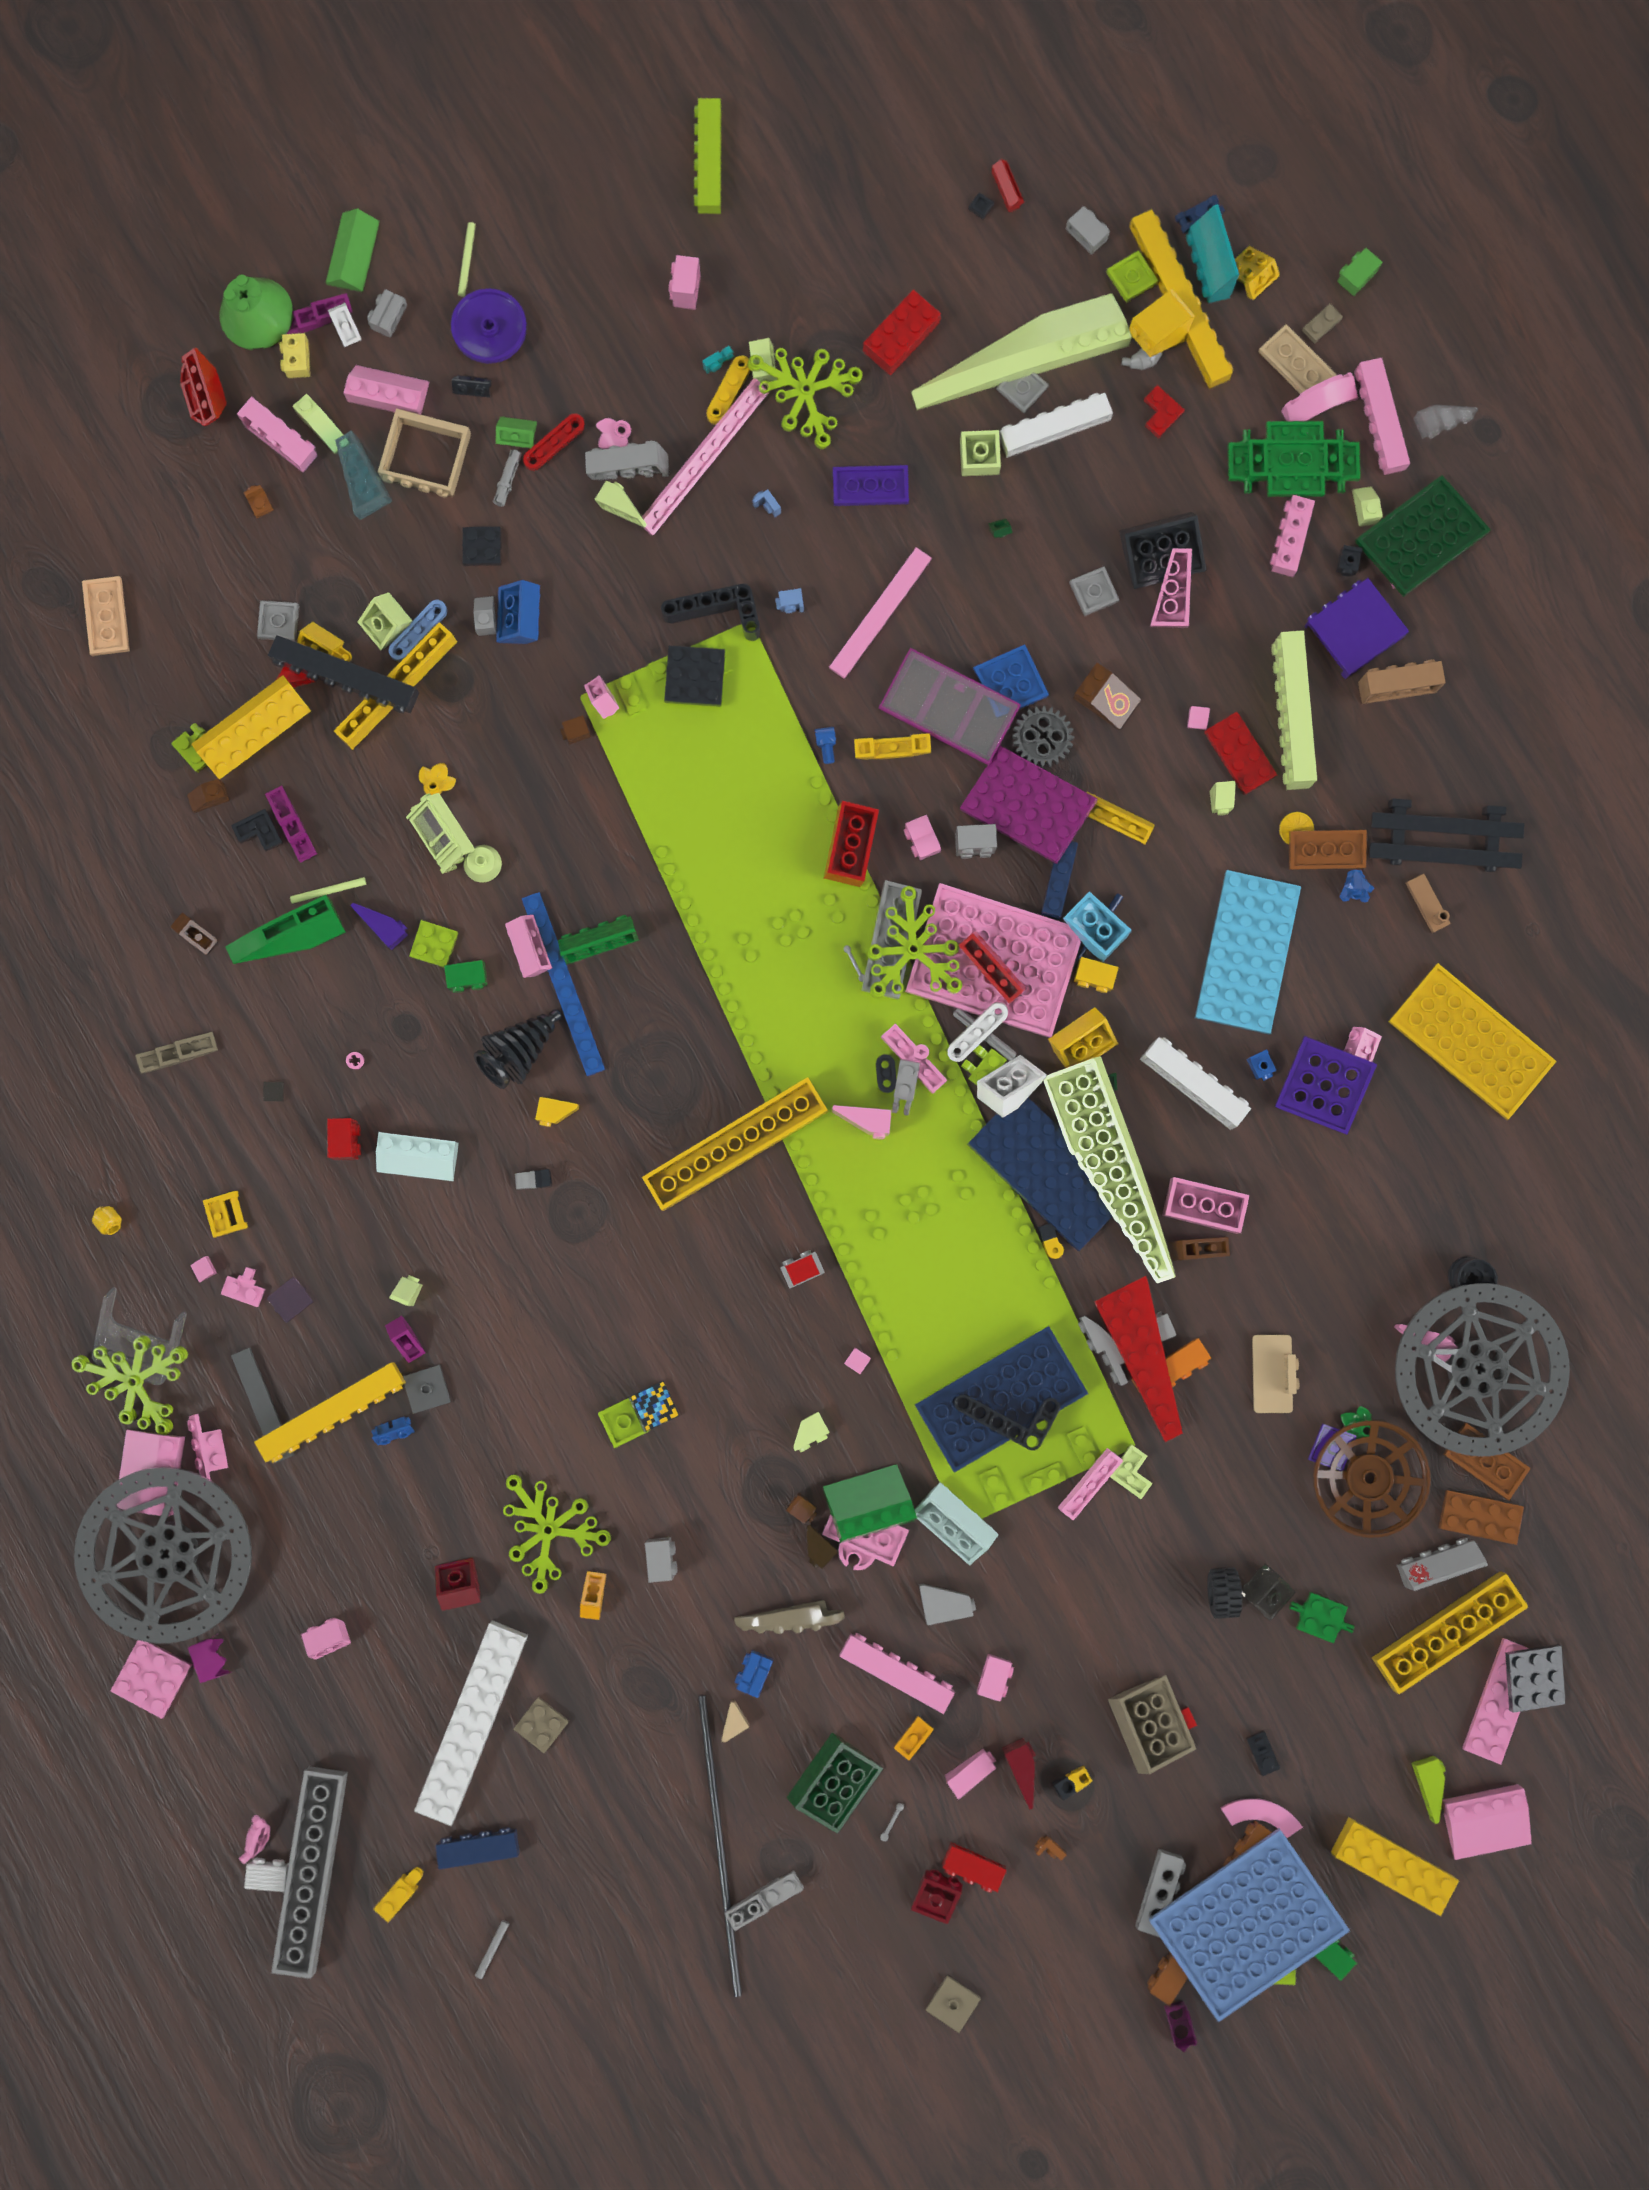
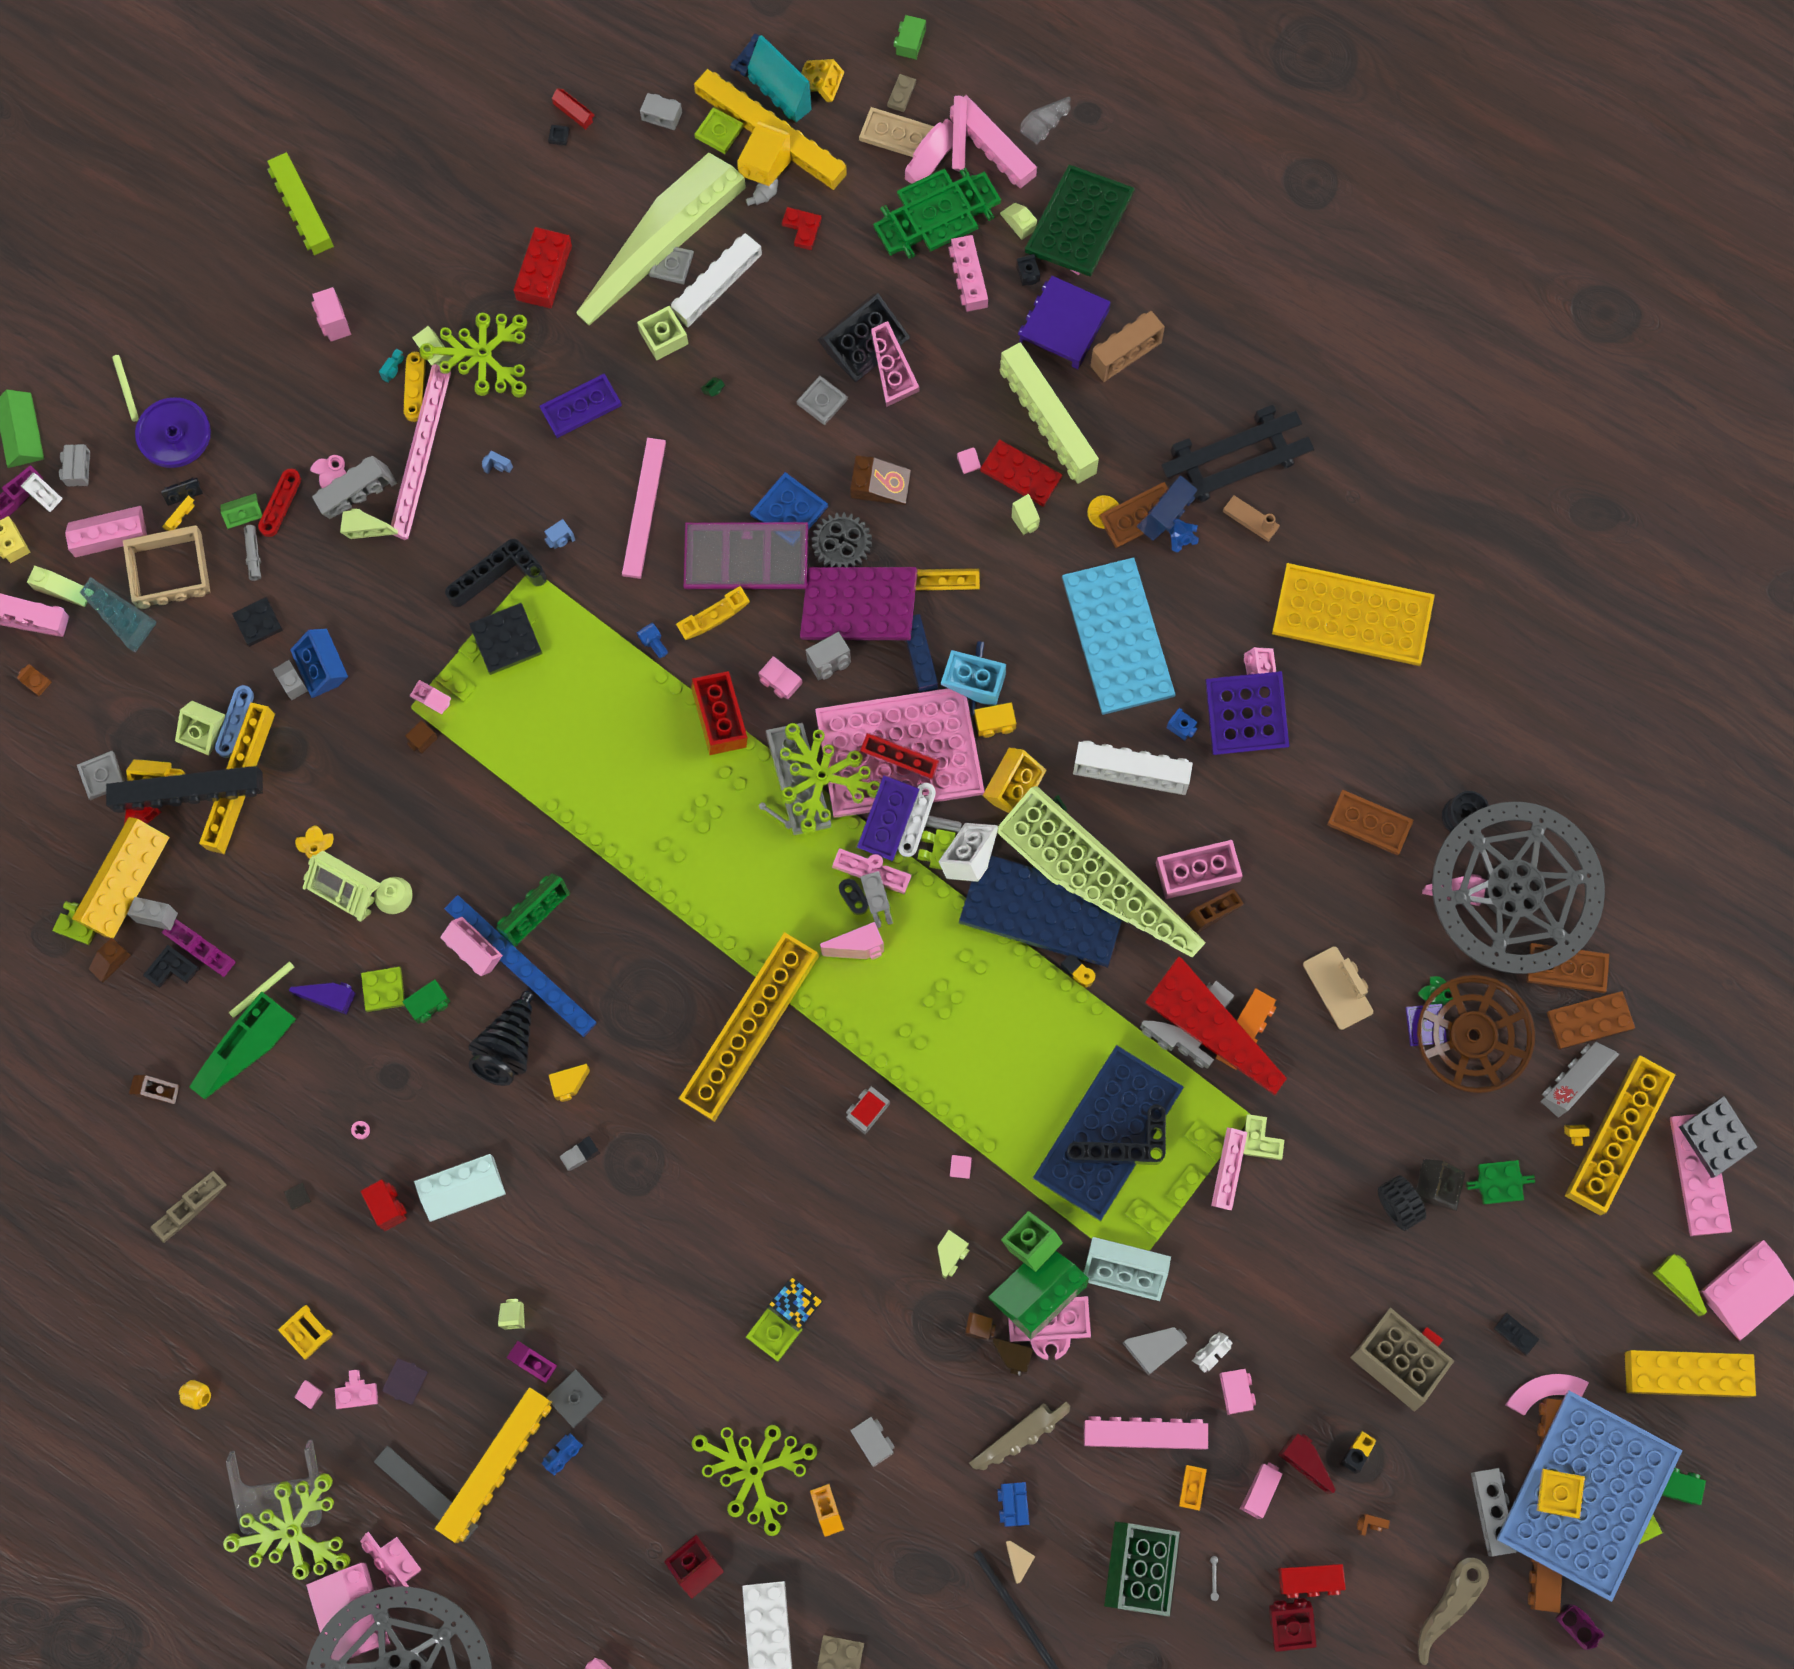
camera: 20 degrees left, 10 degrees down
(264, 773) = (152, 913): none -> light grey brick
(451, 412) = (175, 519): none -> yellow plate
(885, 1459) = (1032, 1241): none -> bright green brick
(953, 1018) = (888, 818): none -> dark purple plate
(1000, 1629) = (1217, 1344): none -> white hinge
(1084, 1950) = (1455, 1602): none -> dark tan animal
(1224, 1911) = (1560, 1493): none -> yellow tile
(1354, 393) = (959, 133): none -> bright pink tile
(1356, 858) = (1168, 508): none -> dark blue wedge
(1382, 1240) = (1370, 822): none -> dark orange plate
(1412, 1609) = (1576, 1133): none -> yellow tile

